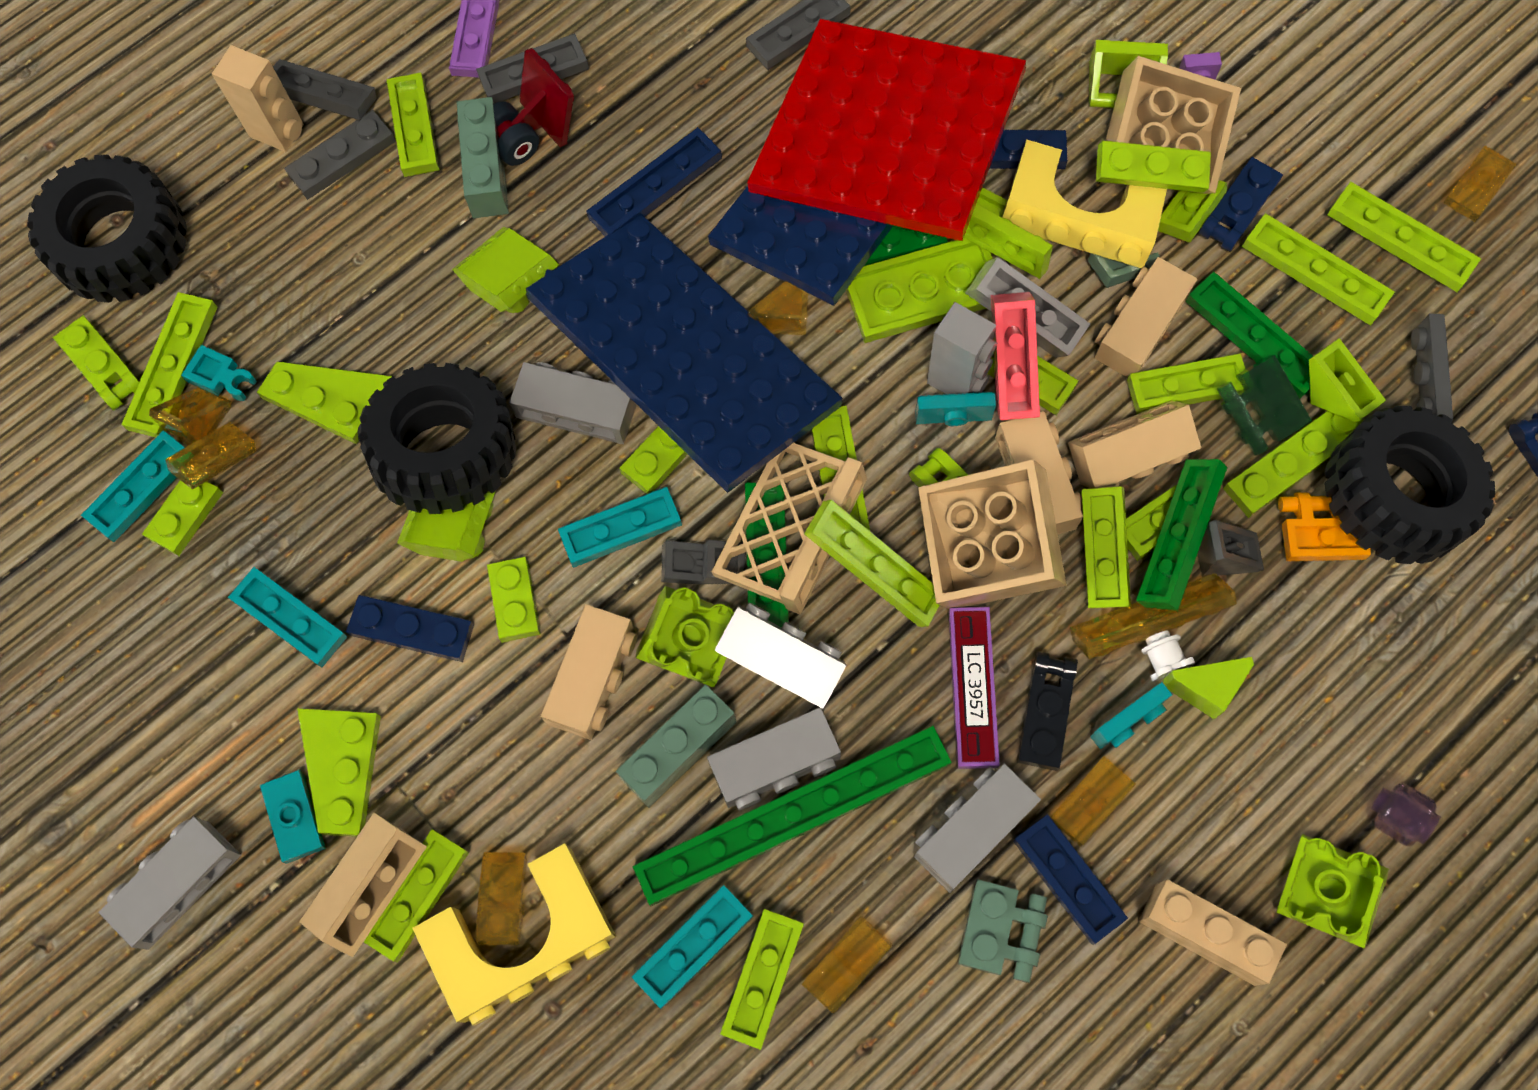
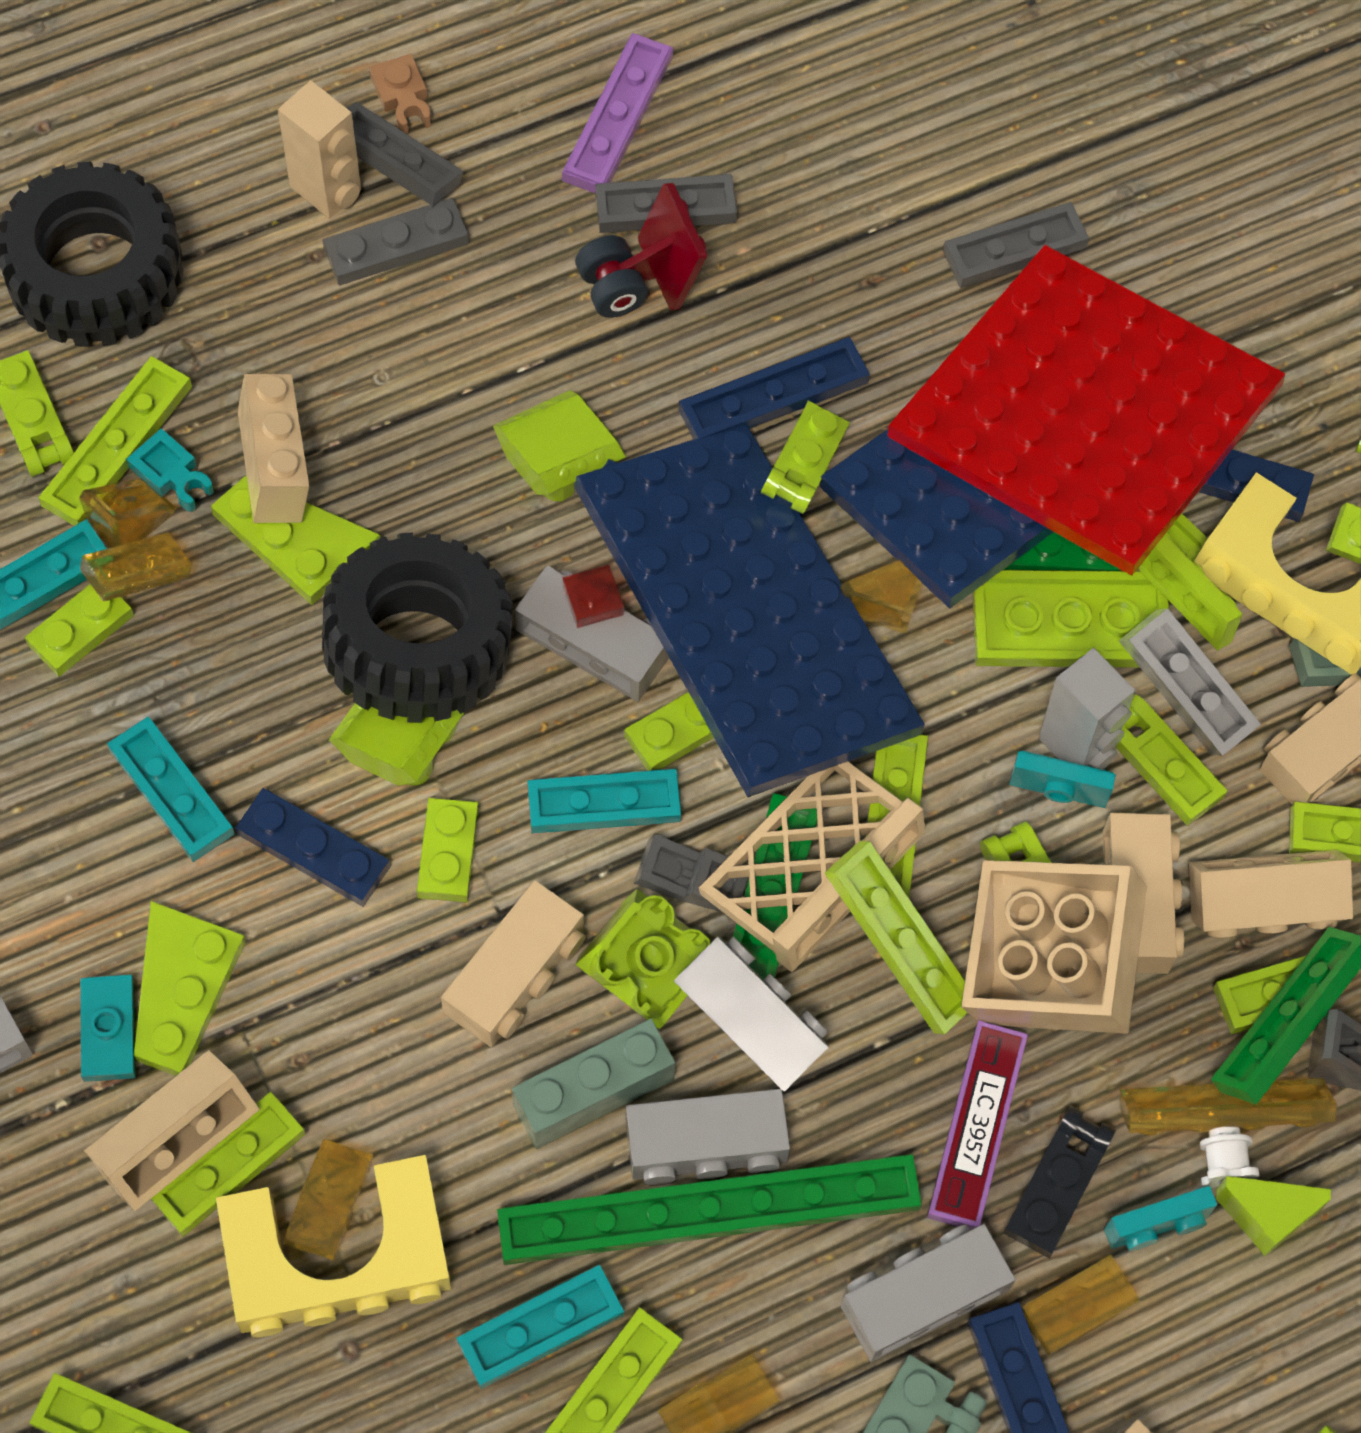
camera: 10 degrees right, 5 degrees down
(289, 334) = (273, 448): none -> tan brick
(311, 41) = (401, 88): none -> medium nougat plate
(412, 124) = (496, 230): lime plate -> none
(480, 158) = (569, 298): sand green brick -> none
(565, 375) = (593, 596): none -> clear red plate
(692, 225) = (805, 456): none -> lime plate
(1015, 356) = (1152, 736): coral brick -> none
(1106, 547) = (1194, 1004): lime plate -> none

